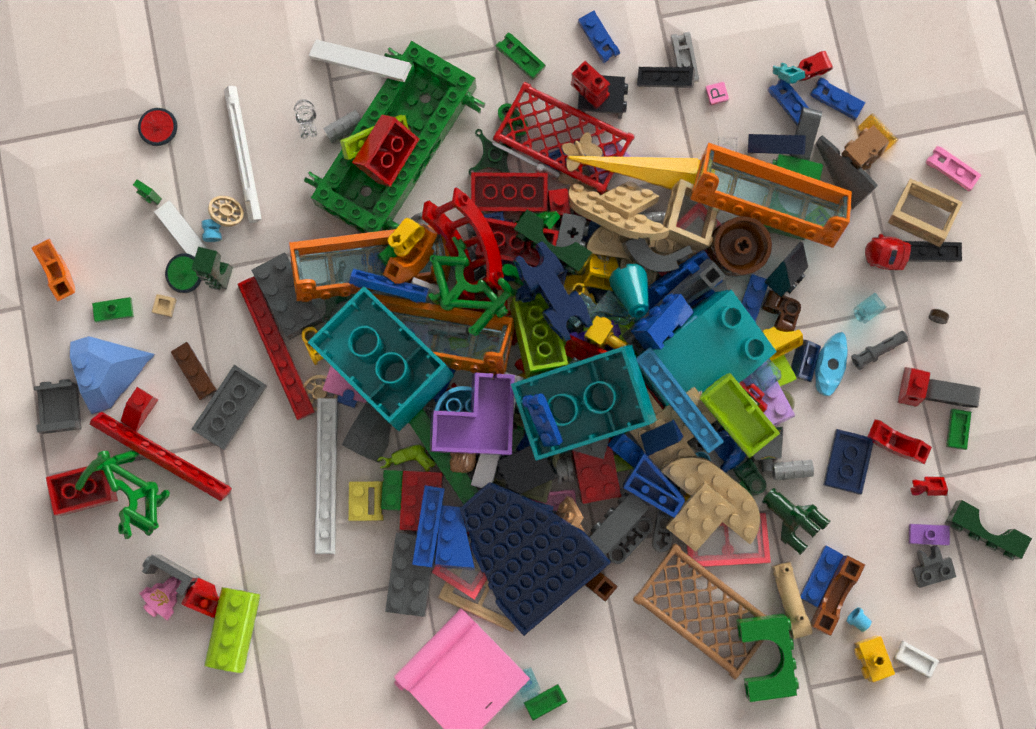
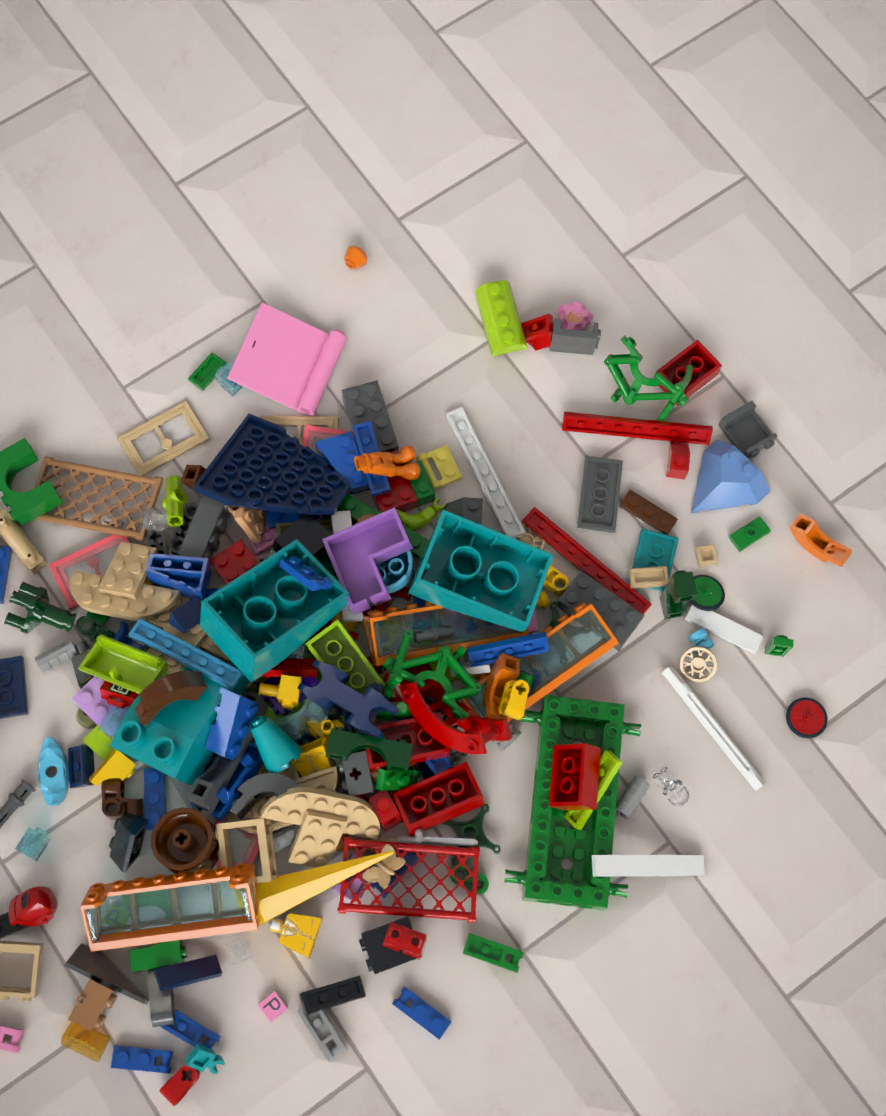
camera: 150 degrees right, 10 degrees down
(213, 324) = (655, 551): none -> teal tile
(227, 307) = (648, 577): none -> tan tile
(422, 509) = (383, 463): none -> orange piece
(615, 649) = (163, 438): none -> tan door
(630, 571) = (174, 501): none -> lime piece
(655, 557) = (154, 519): none -> clear piece
(673, 138) = (298, 932): none -> yellow torso
(708, 365) = (167, 689): none -> reddish brown arch

